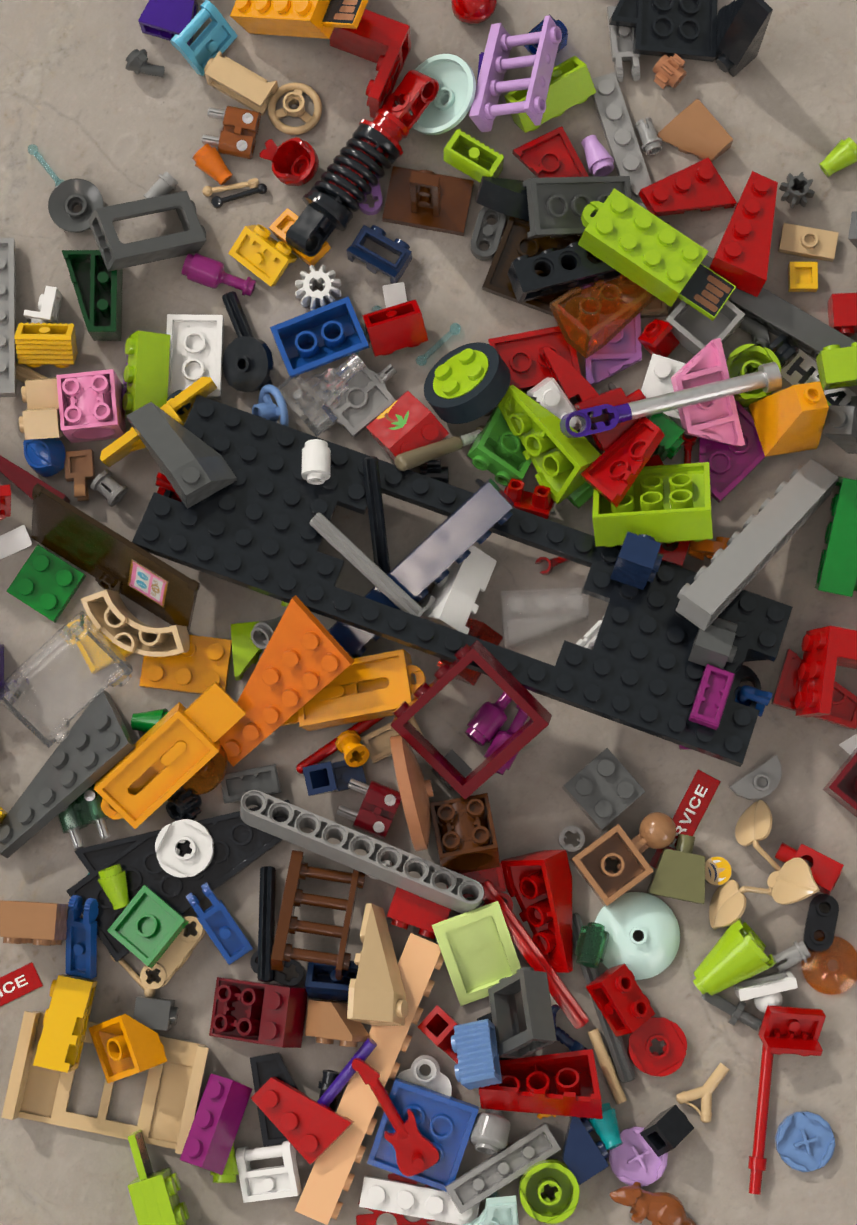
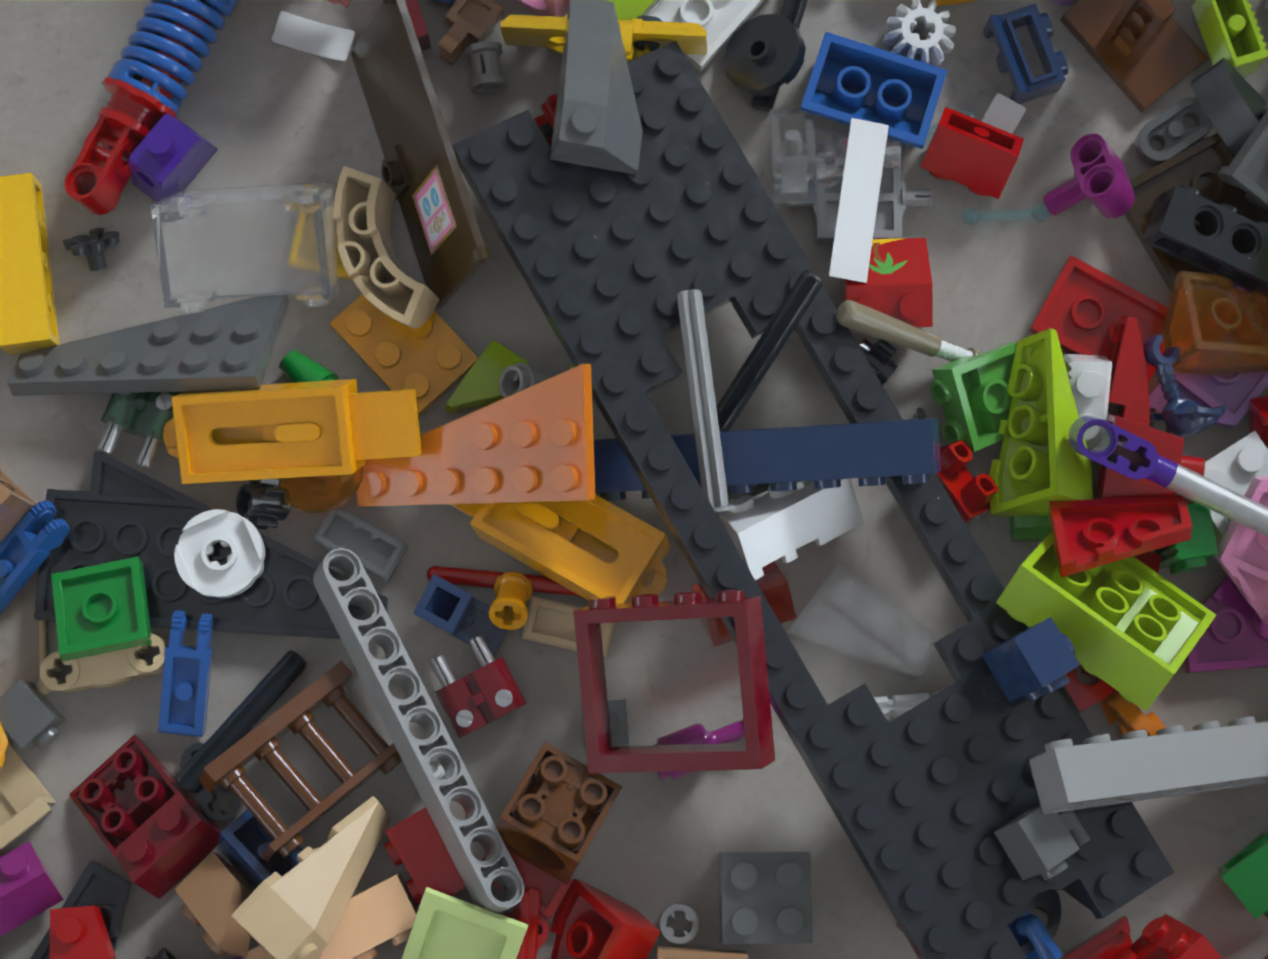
camera: 30 degrees right, 0 degrees up
(46, 583) = (323, 119): green plate -> none
(114, 885) = (104, 529): lime cone -> none
(269, 410) = (744, 127): medium blue piece -> none
(316, 462) = (746, 228): white brick -> none
(359, 400) = (858, 200): none -> white sticker
(413, 792) = (534, 712): nougat dish -> none
(467, 383) = (1003, 285): black wheel -> none
(469, 288) = (1098, 177): none -> magenta beam
(488, 720) = (696, 701): magenta piece -> none
(552, 563) = (927, 578): red hand -> none
(609, 375) = (1179, 414): none -> dark blue piece
(688, 443) = (1205, 574): red hand -> none
(711, 697) = (986, 901): magenta plate -> none

